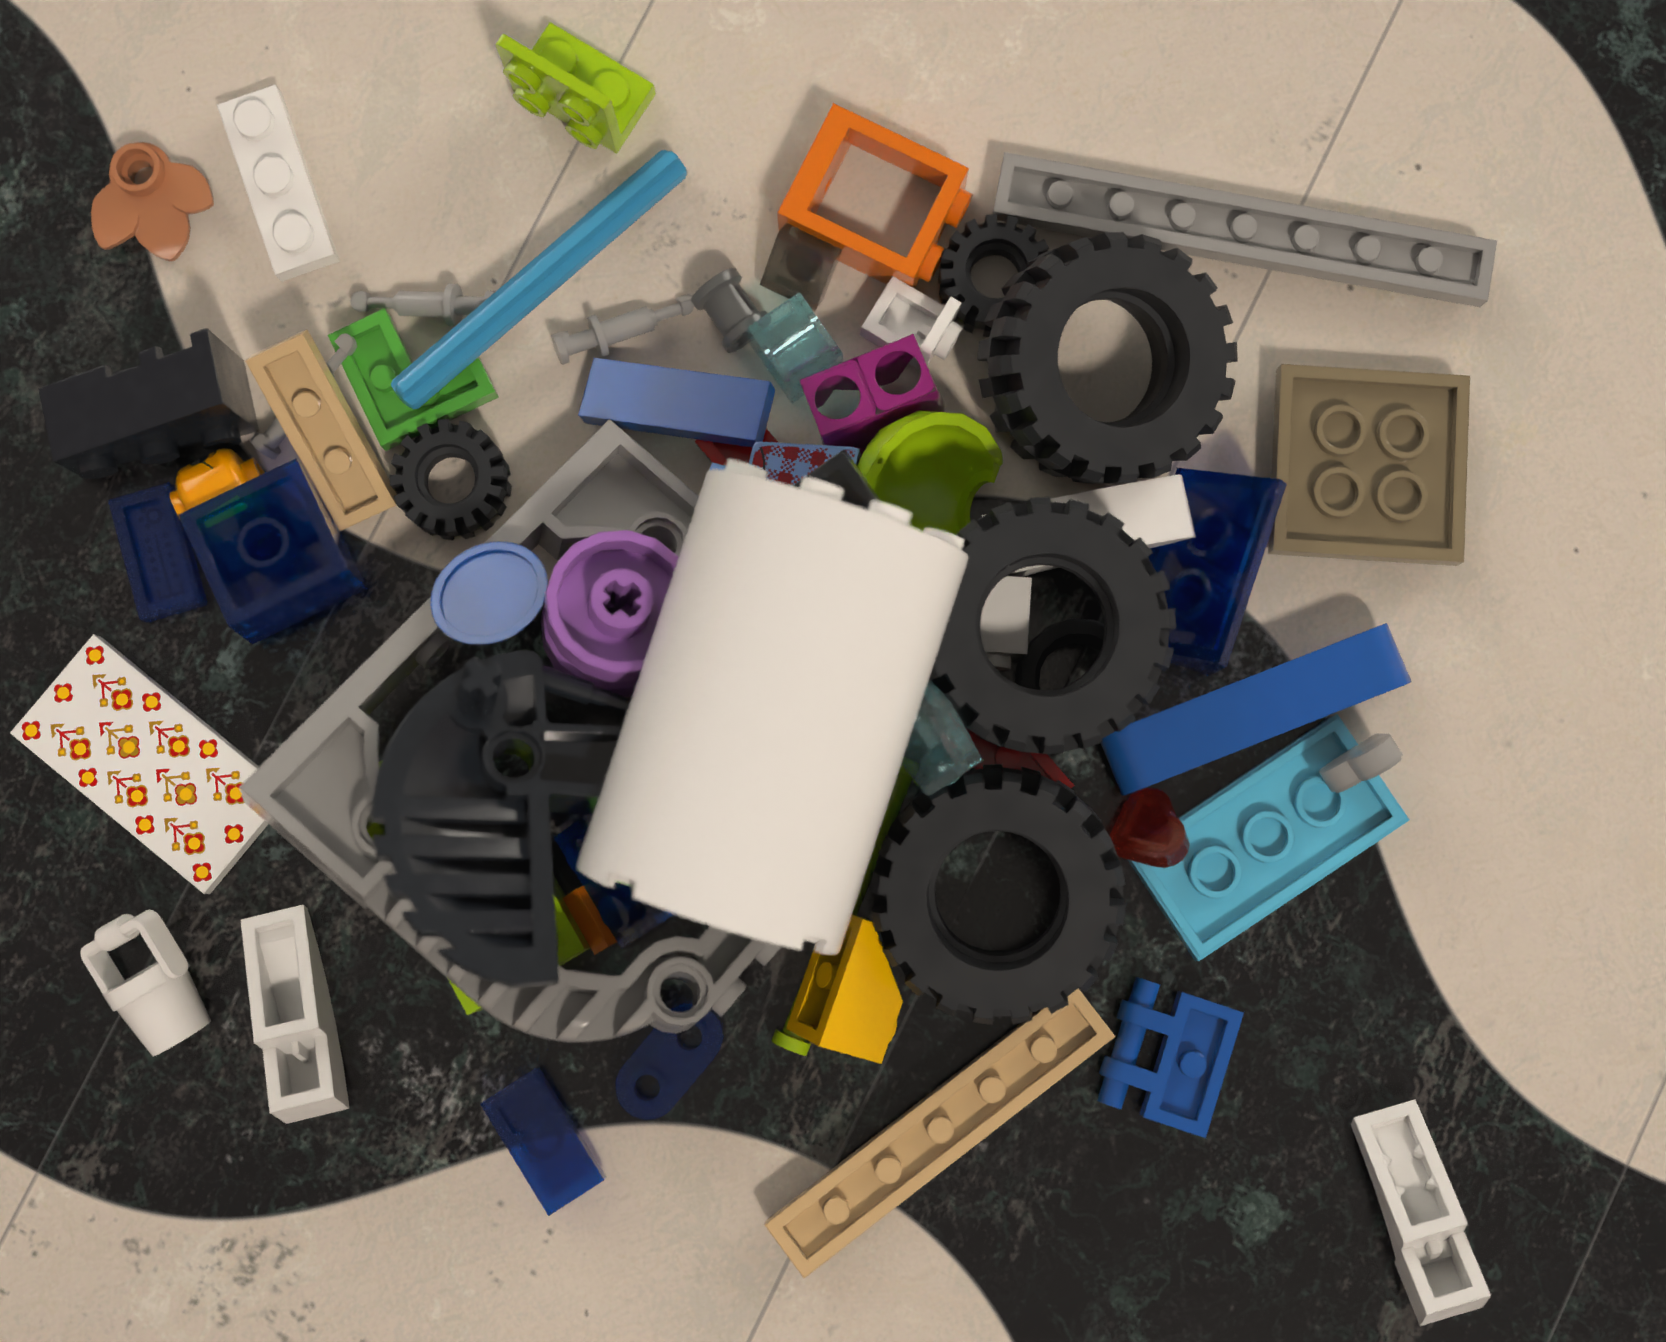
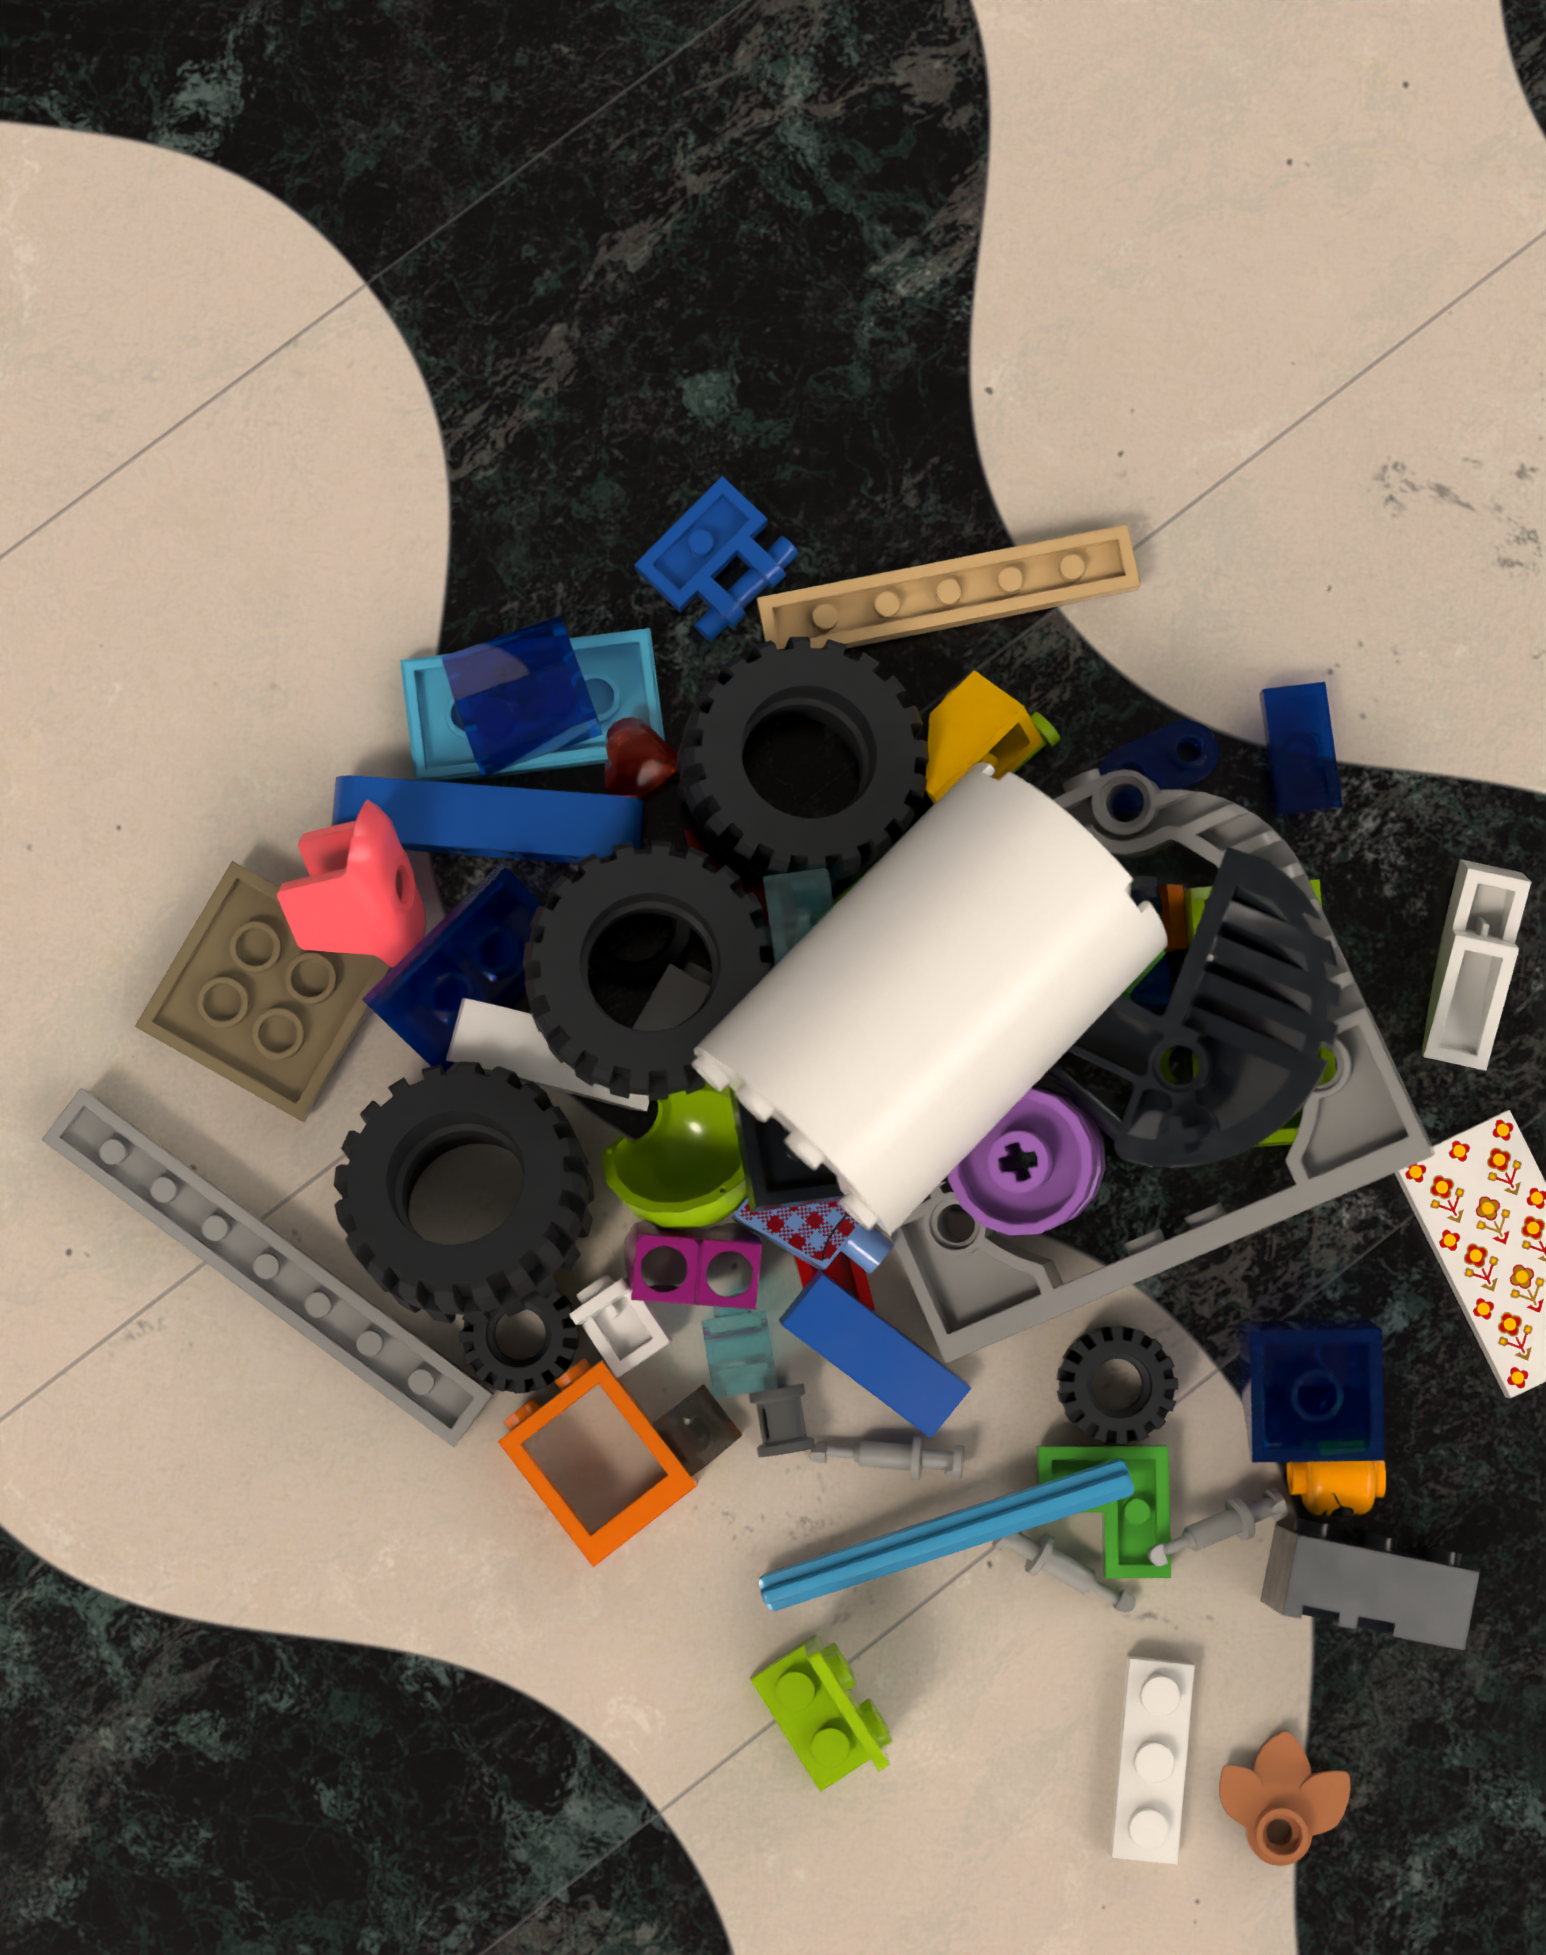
camera: 155 degrees left, 0 degrees up
(157, 554) = (1420, 1450): clear blue tile -> none
(322, 429) = (1215, 1483): tan plate -> none
(488, 593) = (1133, 1234): piece -> none
(1286, 835) = (521, 696): none -> clear blue slope
(1339, 572) = (357, 891): none -> coral piece
(1361, 763) = (421, 726): light grey tile -> none
(1420, 1213) = (569, 329): white slope -> none

